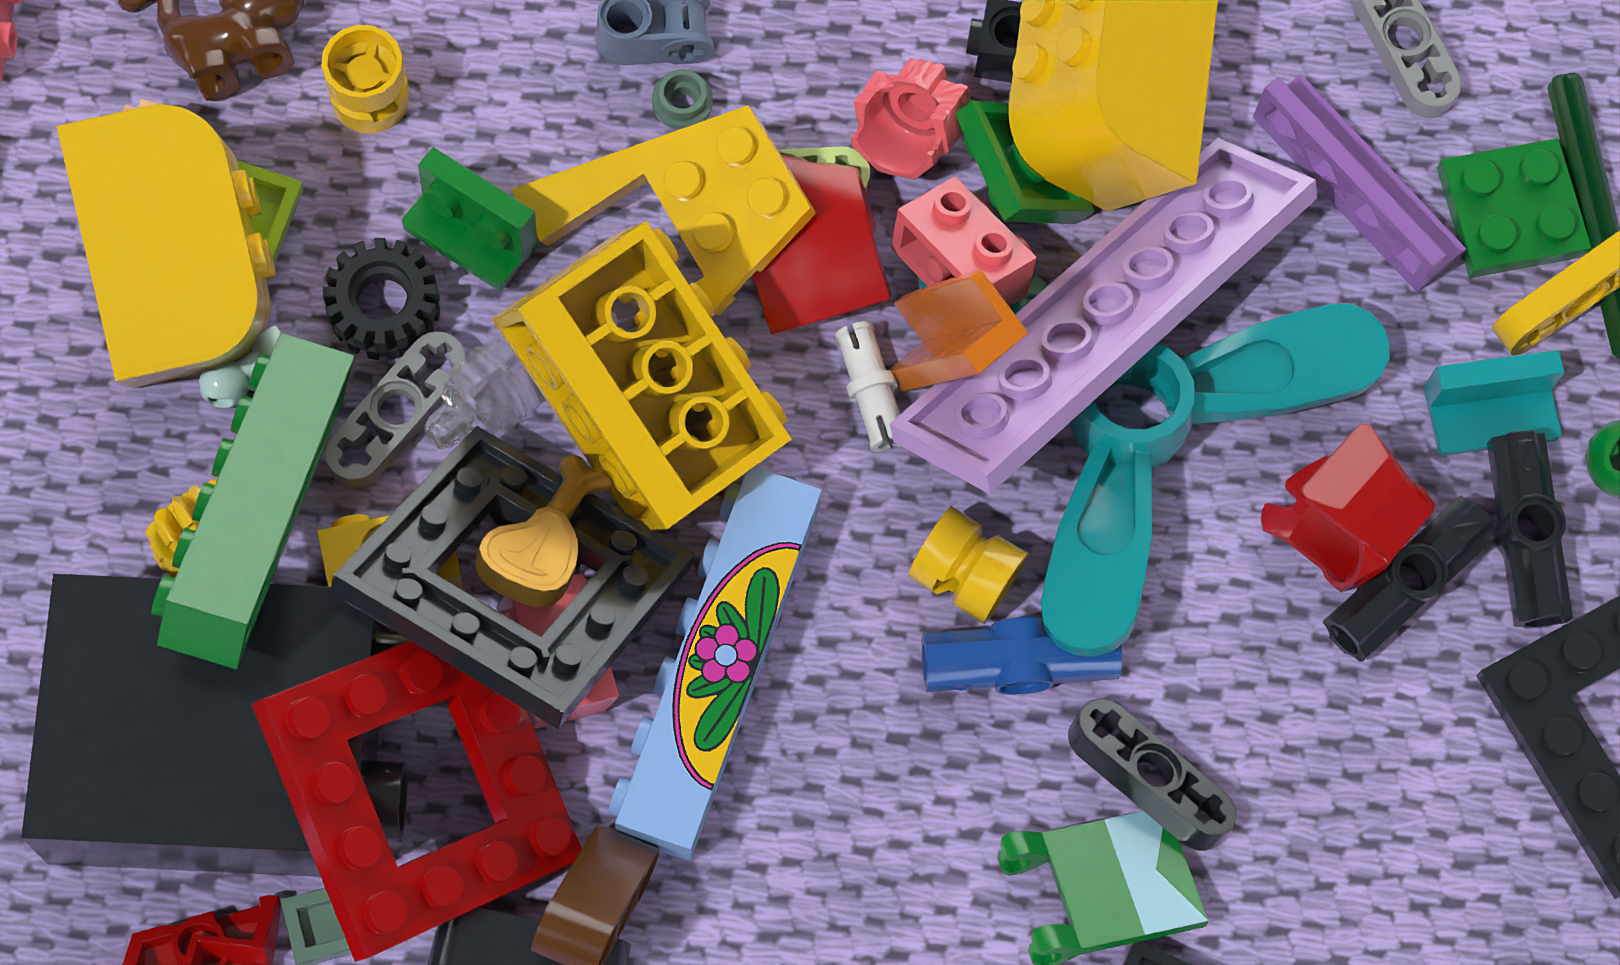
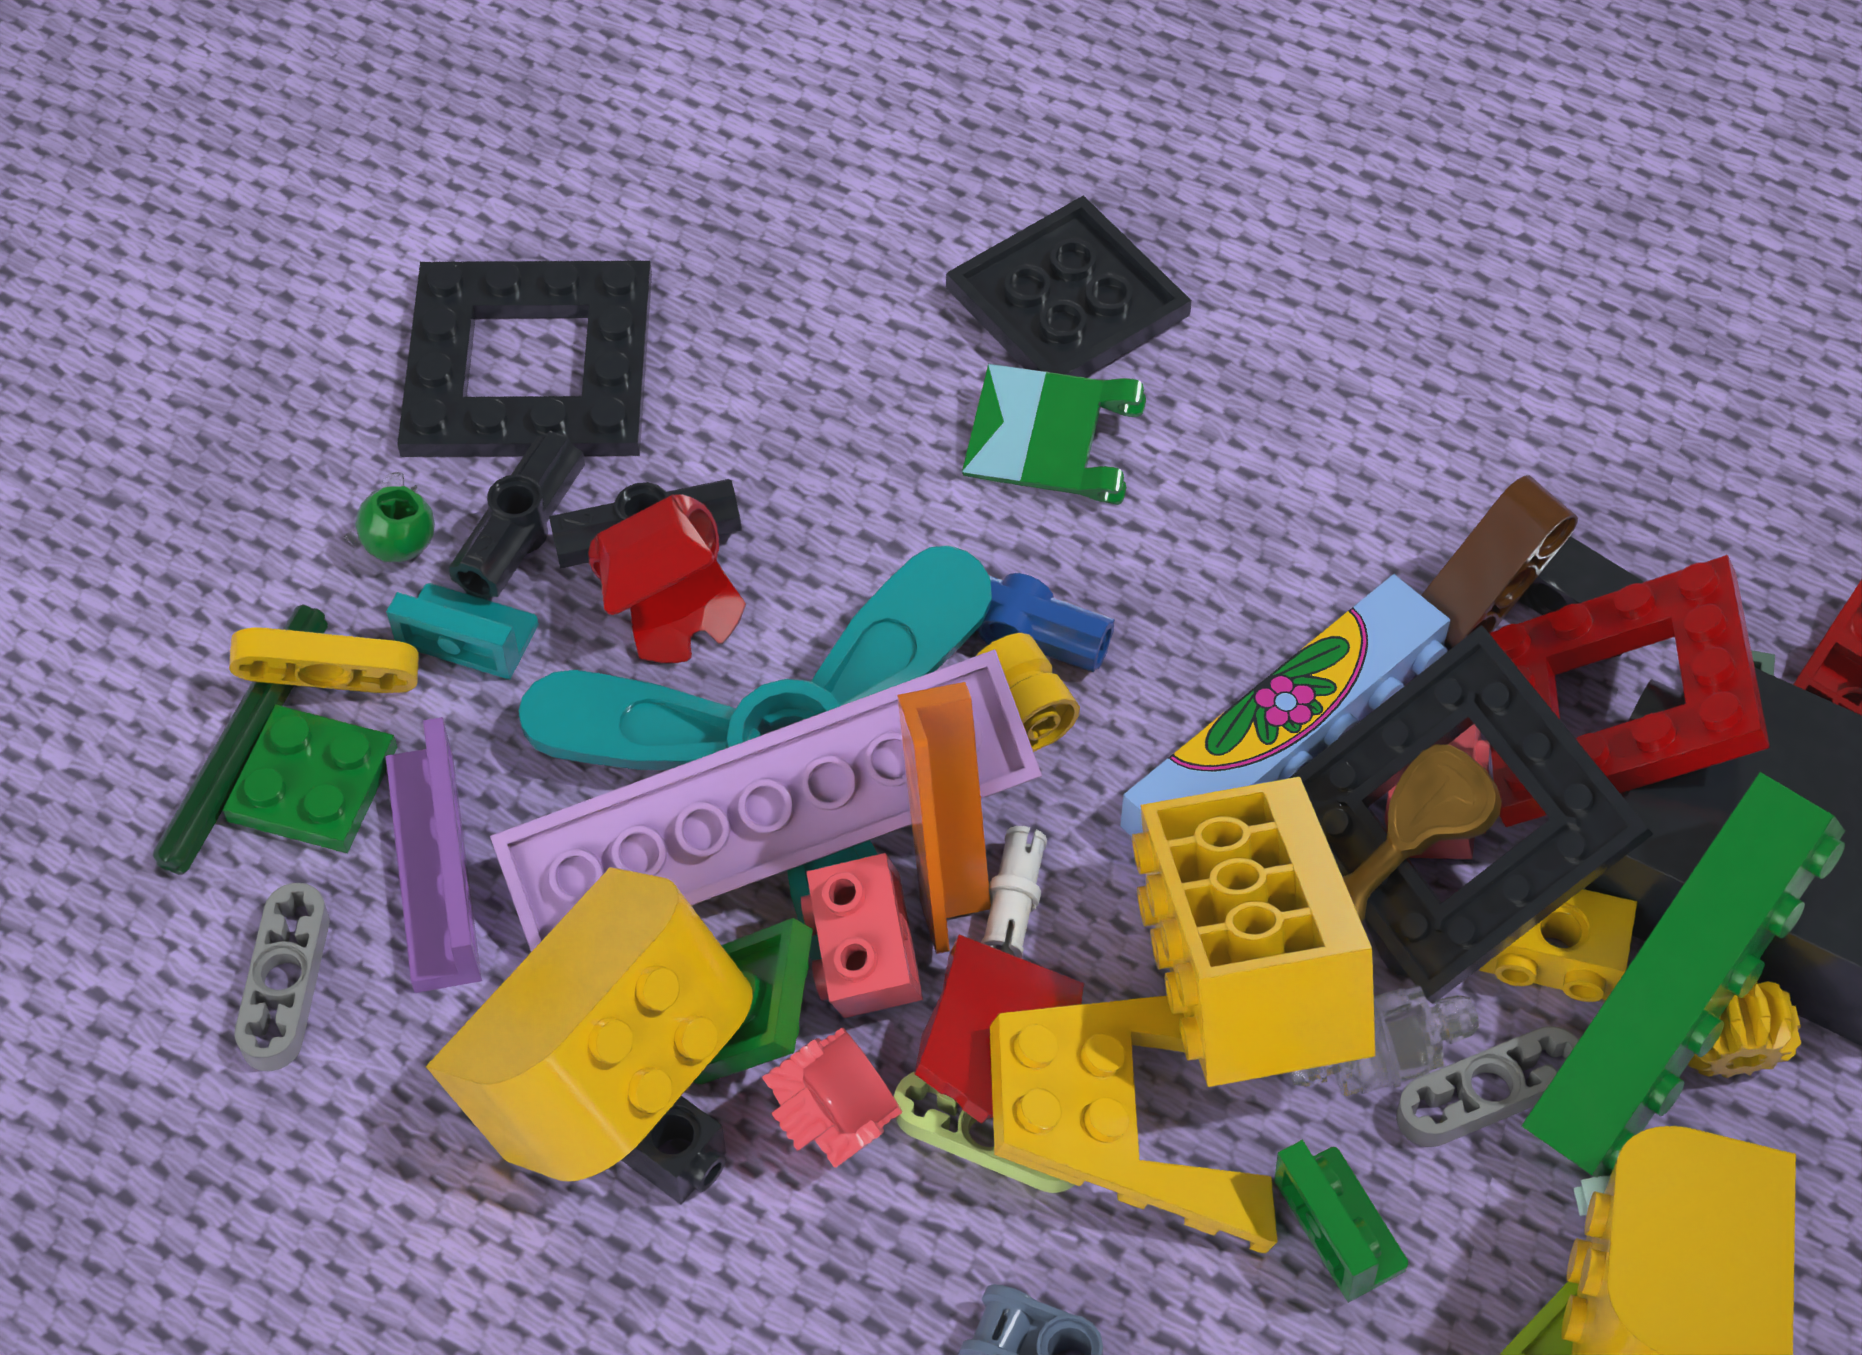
camera: 145 degrees left, 15 degrees down
(381, 264) = (1450, 1231): black tyre -> none
(682, 83) = (1051, 1242): sand green plate -> none
(1156, 801) = (981, 501): black beam -> none

